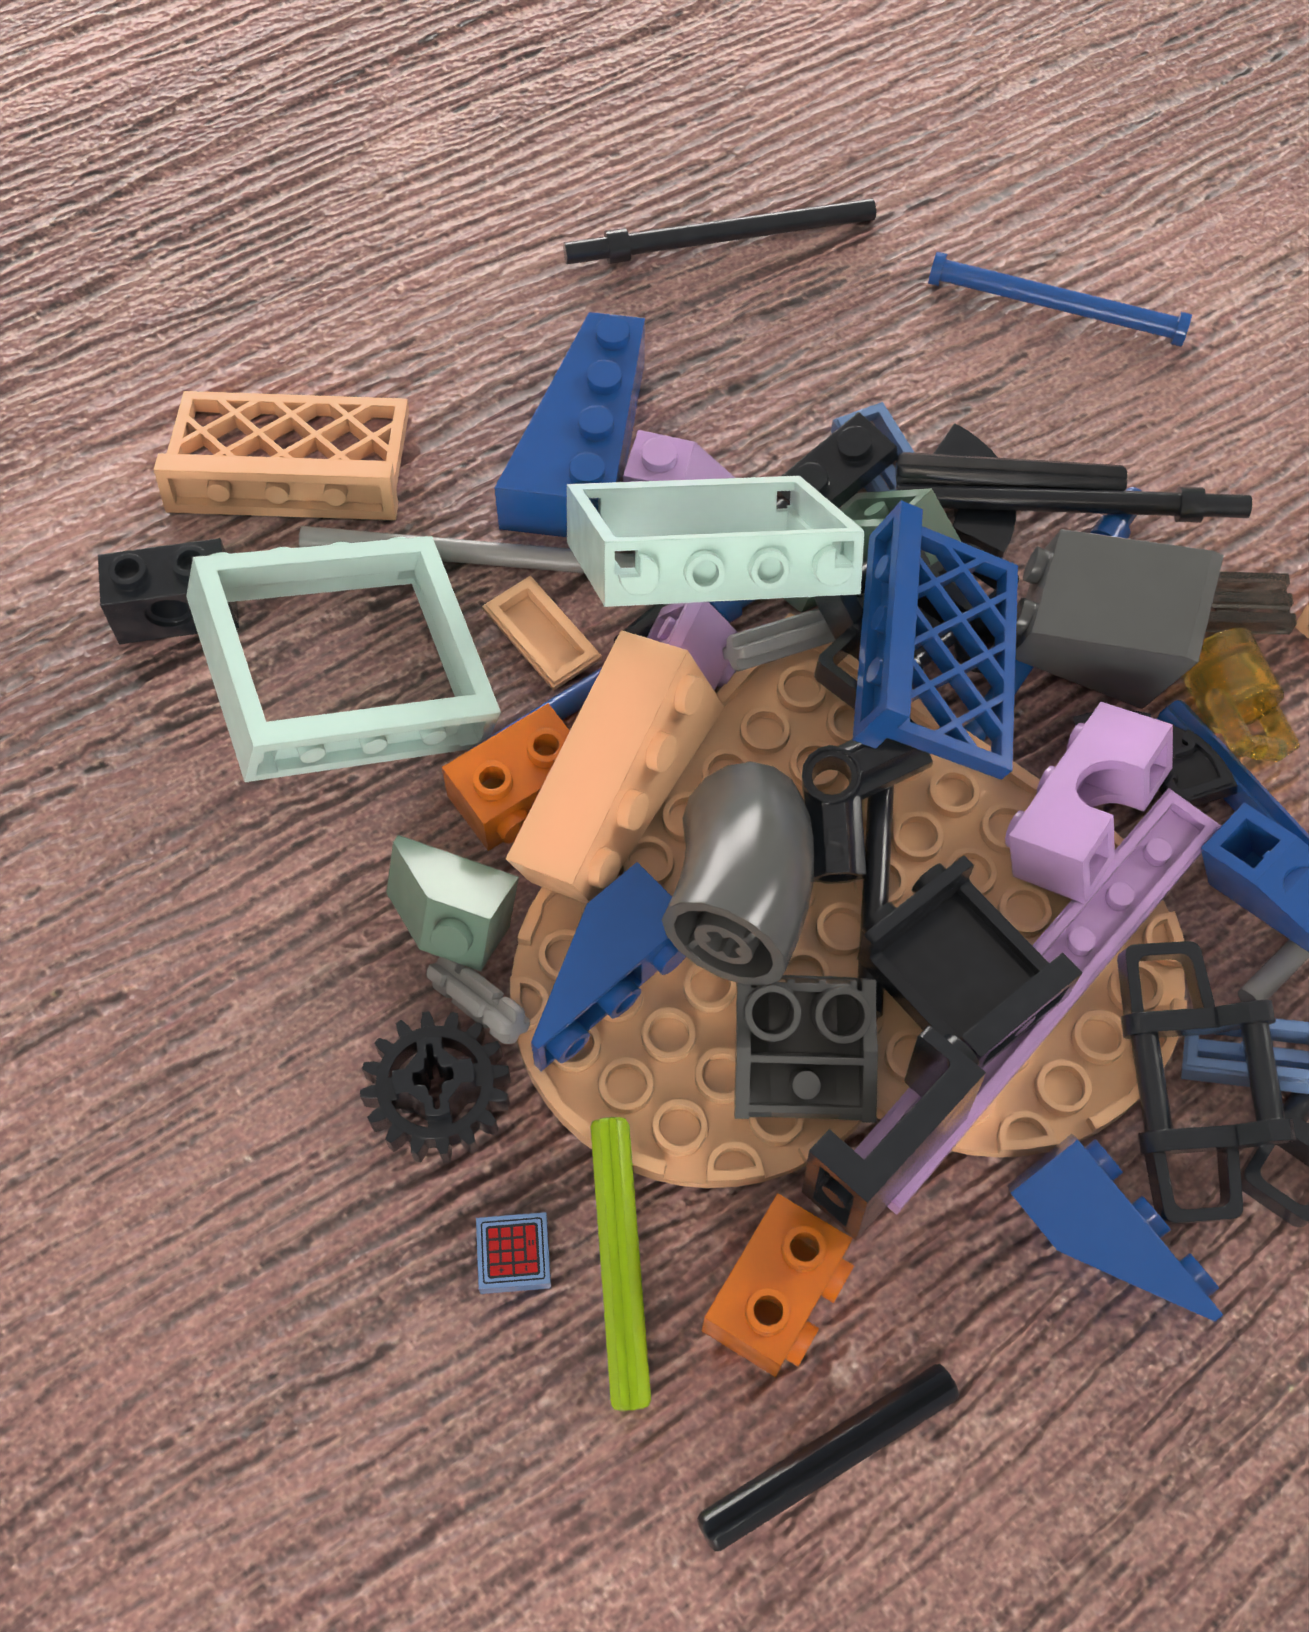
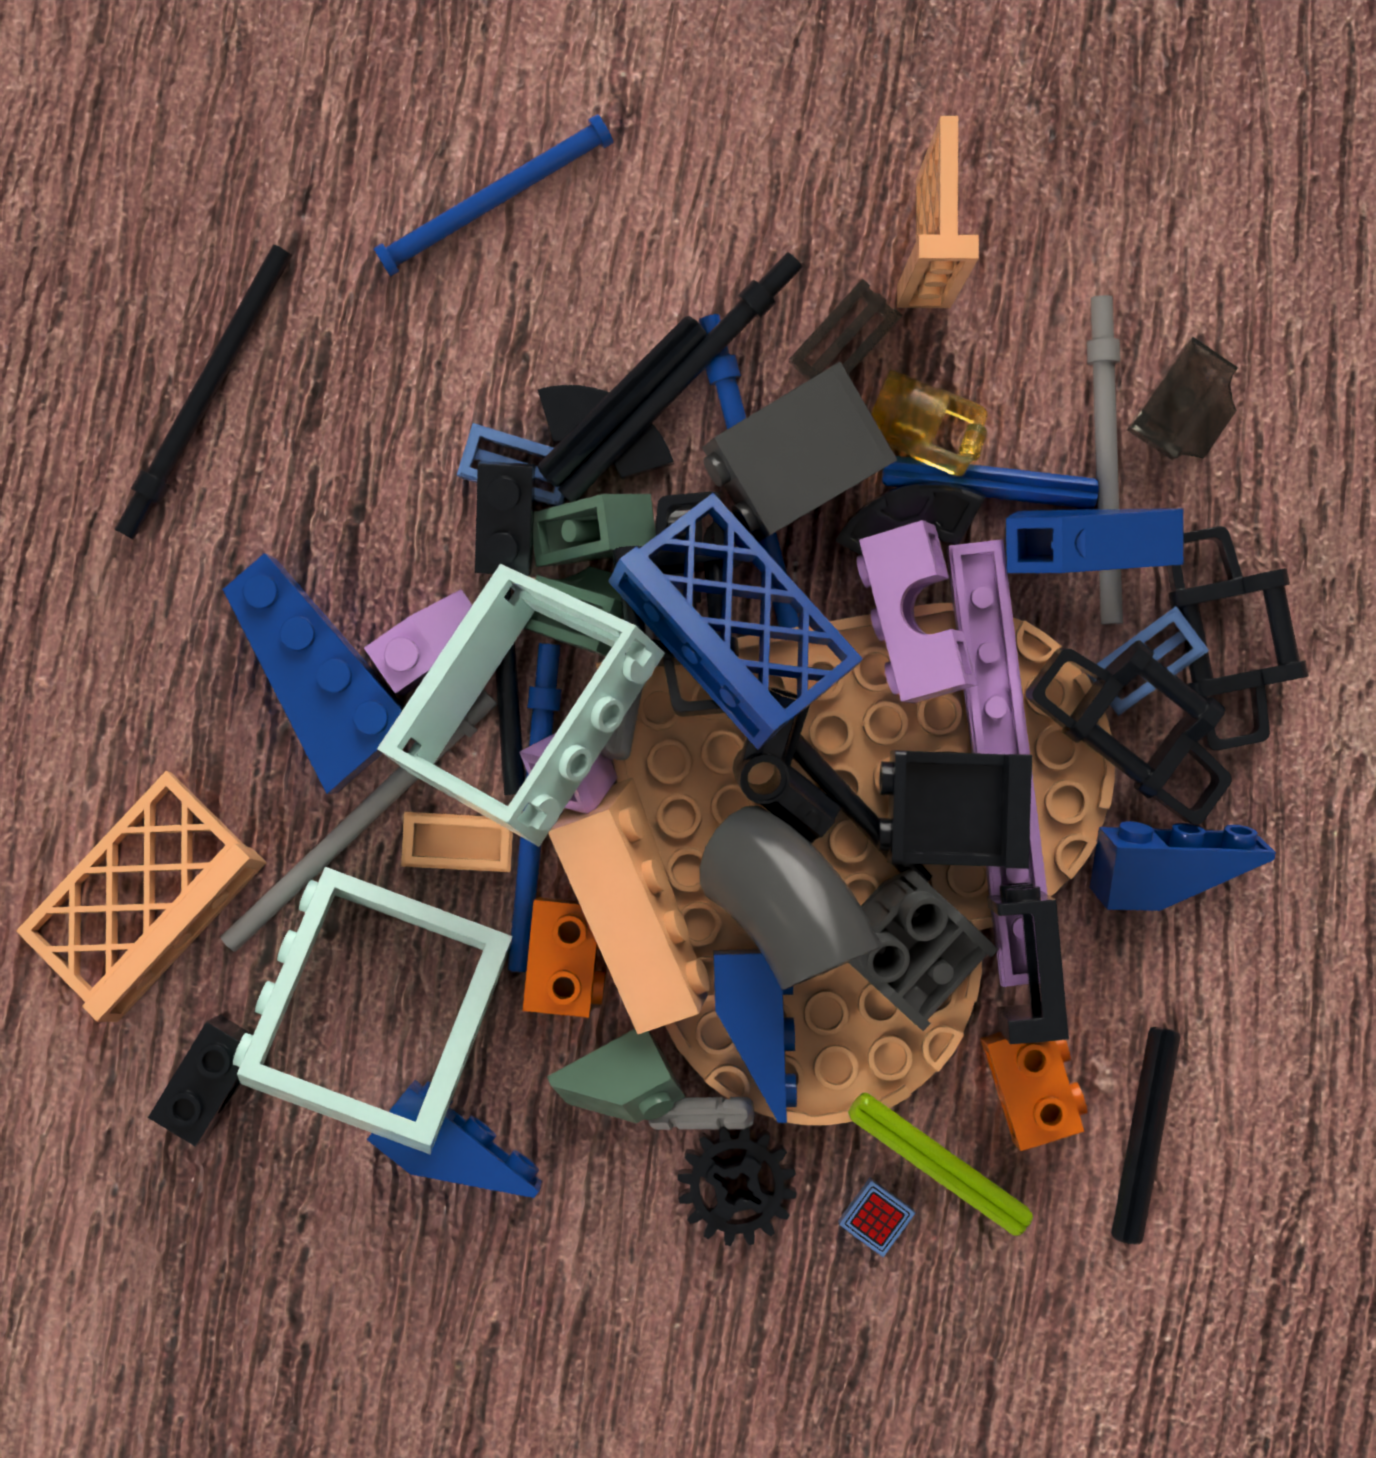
camera: 50 degrees left, 25 degrees up
(267, 827) = (461, 1152): none -> blue slope

